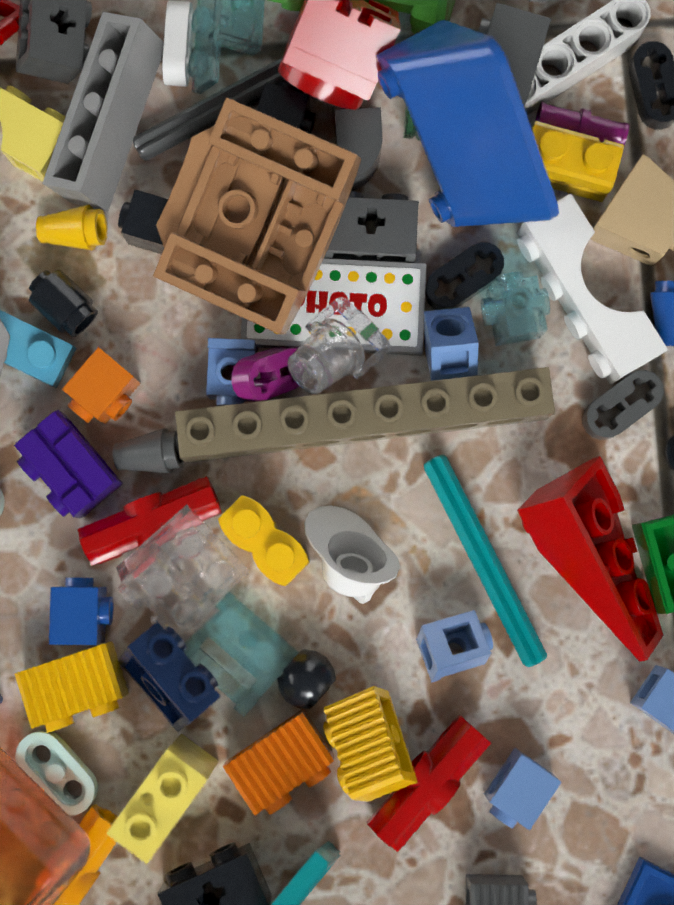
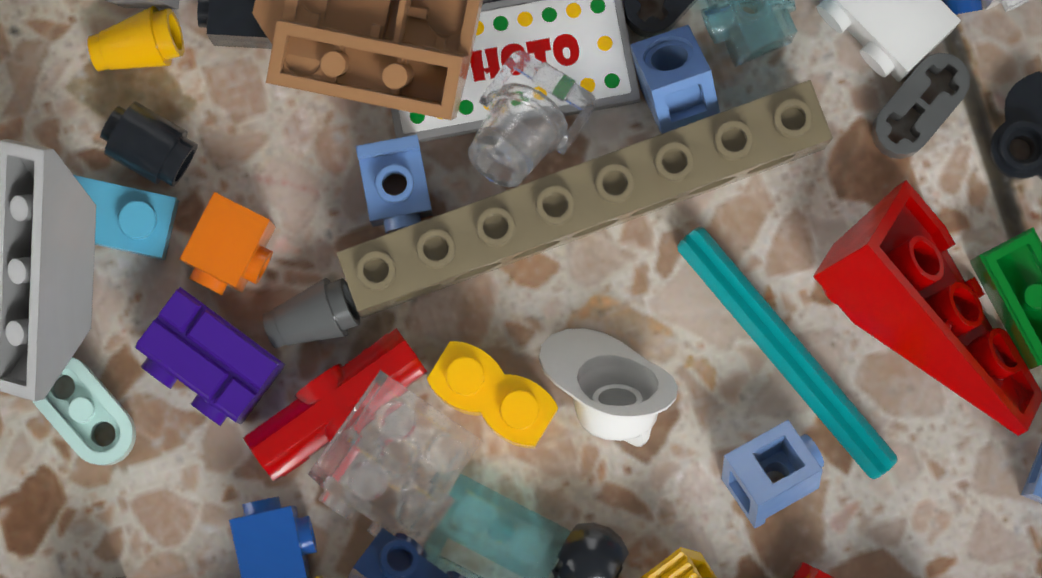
camera: 10 degrees left, 0 degrees up
(270, 381) = (441, 165): magenta beam -> none

